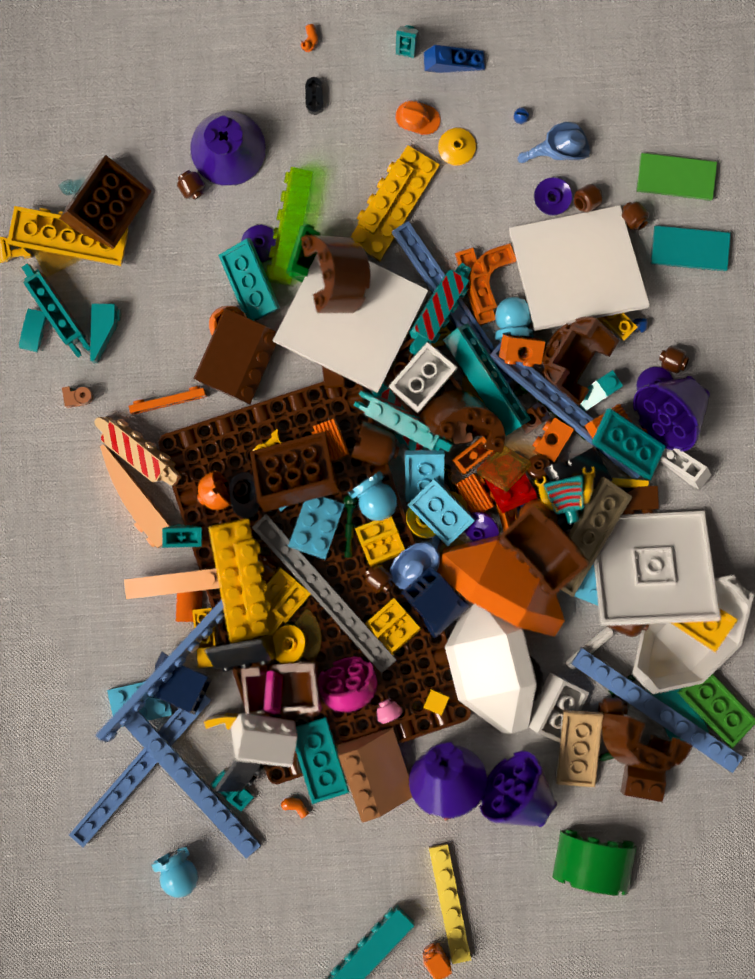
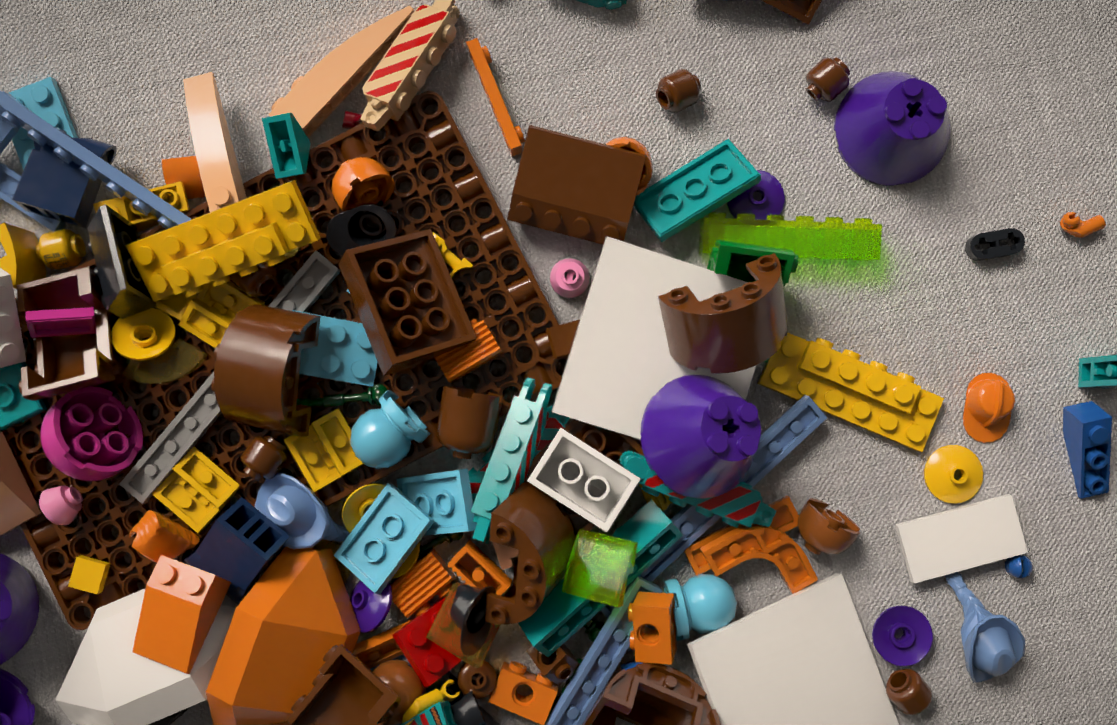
camera: 75 degrees right, 0 degrees up
(168, 495) = (351, 119): none -> dark red hand
(182, 281) = (678, 91): none -> reddish brown head
(222, 698) = (60, 249): none -> yellow head
(297, 374) = (565, 285): none -> bright pink cone
(323, 564) = (261, 367): none -> reddish brown cylinder
(406, 301) = (699, 436): none -> dark purple cone
(419, 648) = (161, 536): none -> orange hair
(466, 638) = (177, 613): none -> orange slope
(478, 376) = (599, 567): none -> clear neon green slope
(479, 233) = (825, 529): none -> dark orange cylinder
(496, 462) = (469, 616): none -> black piece
(498, 149) = (961, 538): none -> white tile

